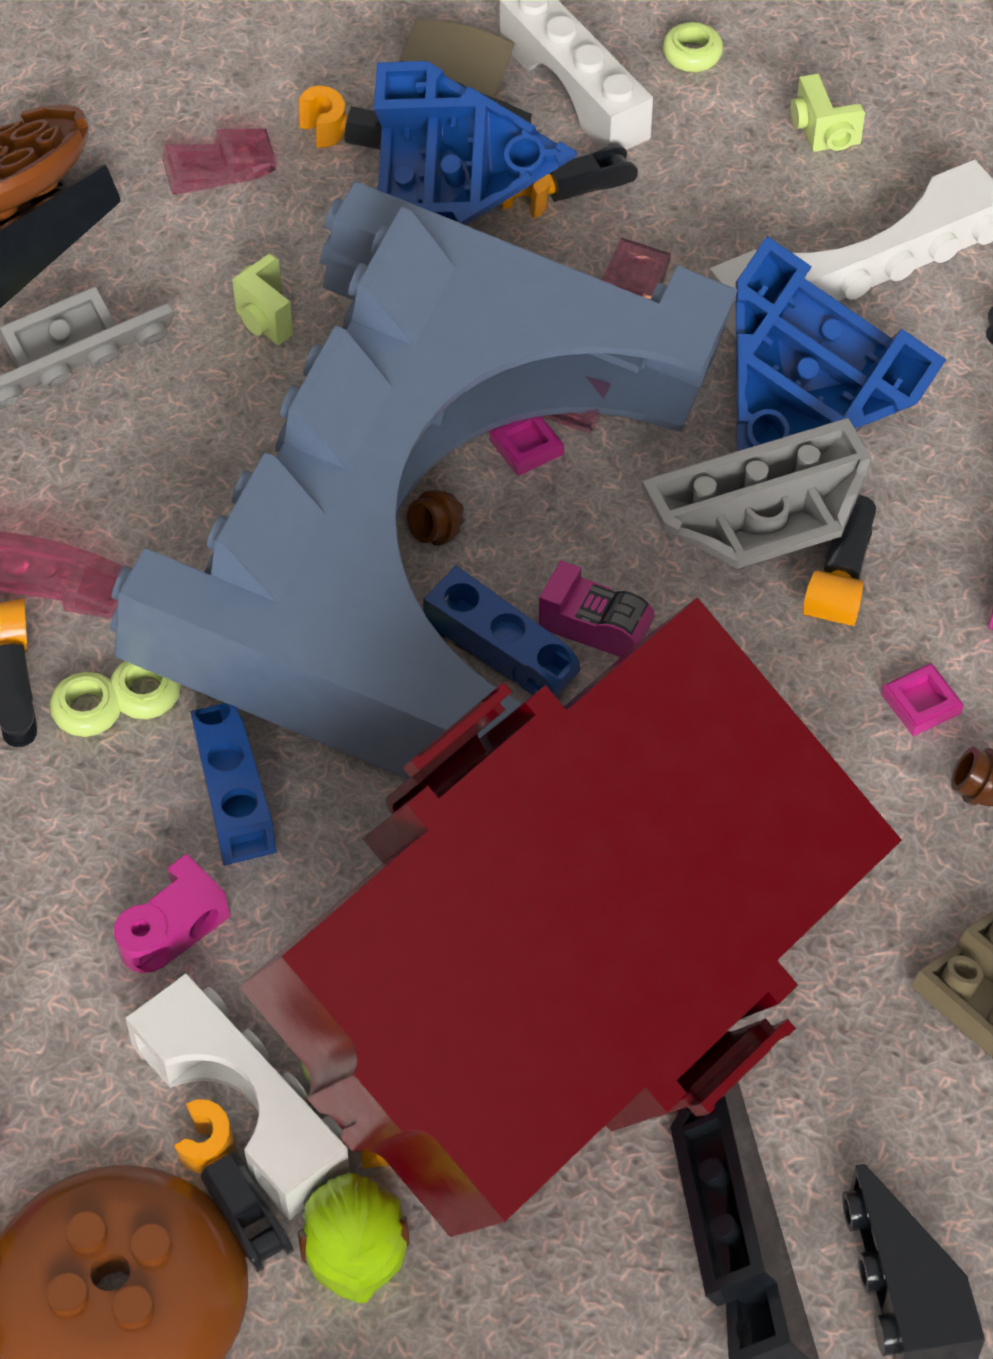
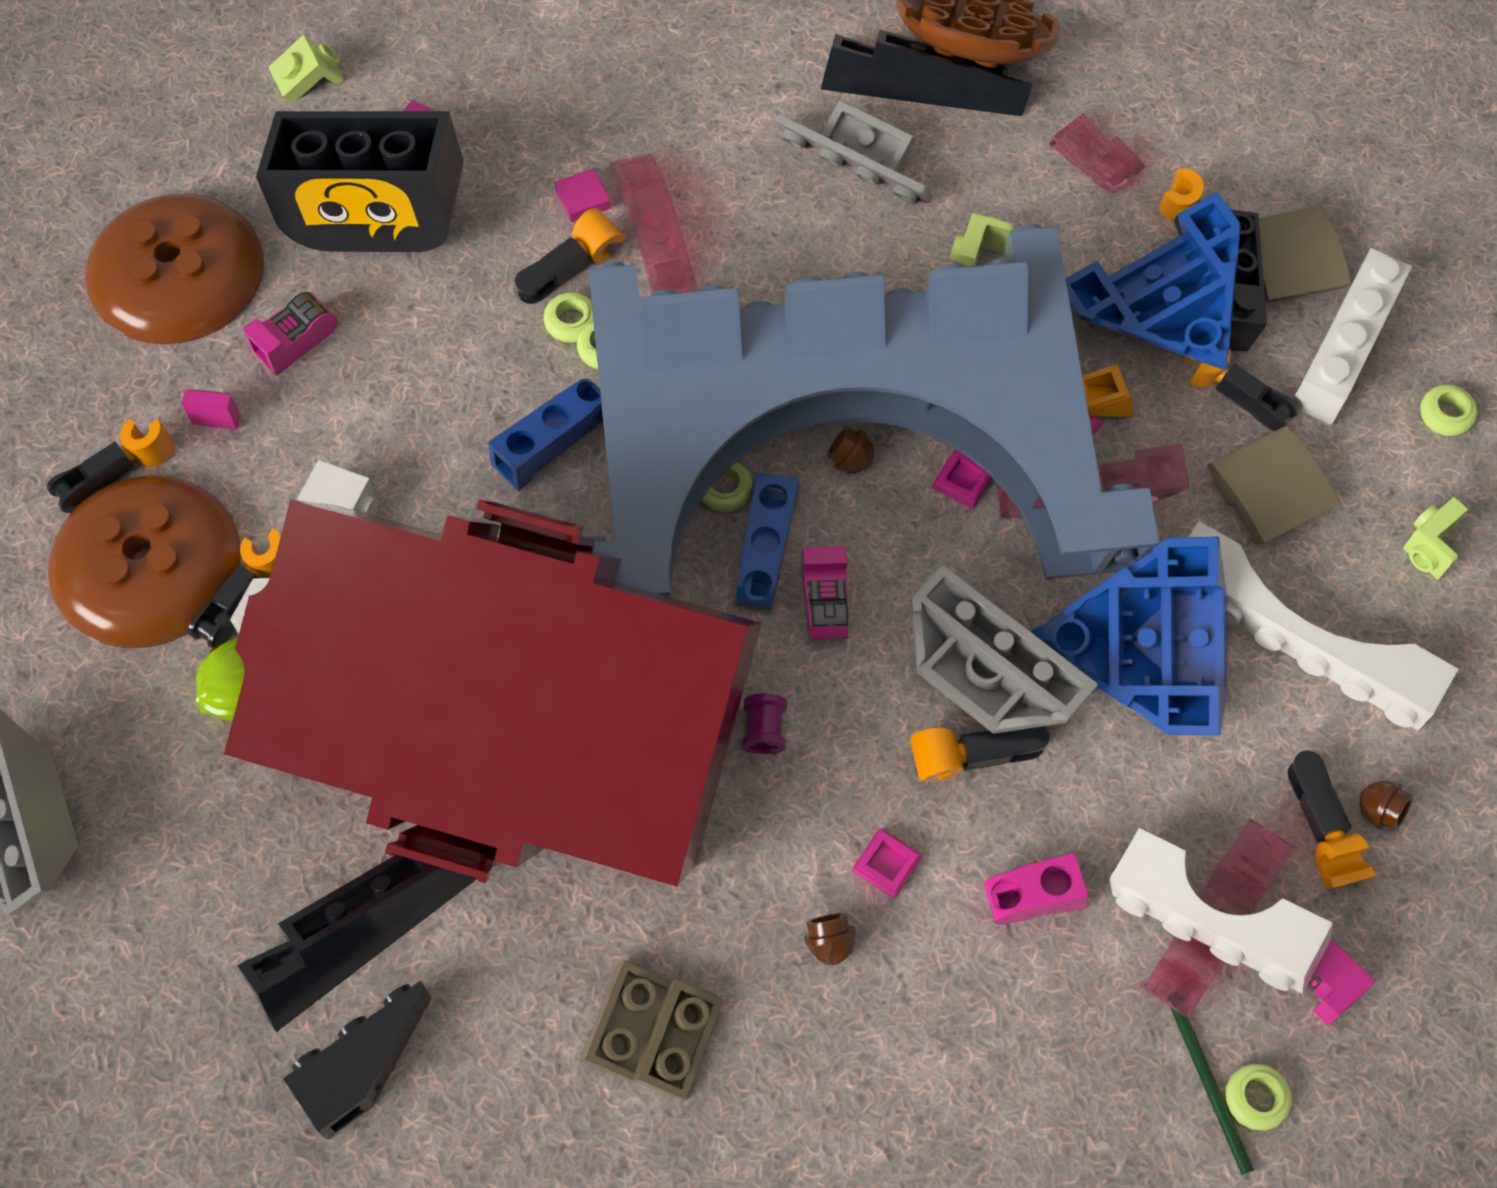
camera: 60 degrees right, 10 degrees up
(171, 920) = (422, 452): dark pink leg -> none
(694, 202) = (1273, 484): none -> dark tan slope

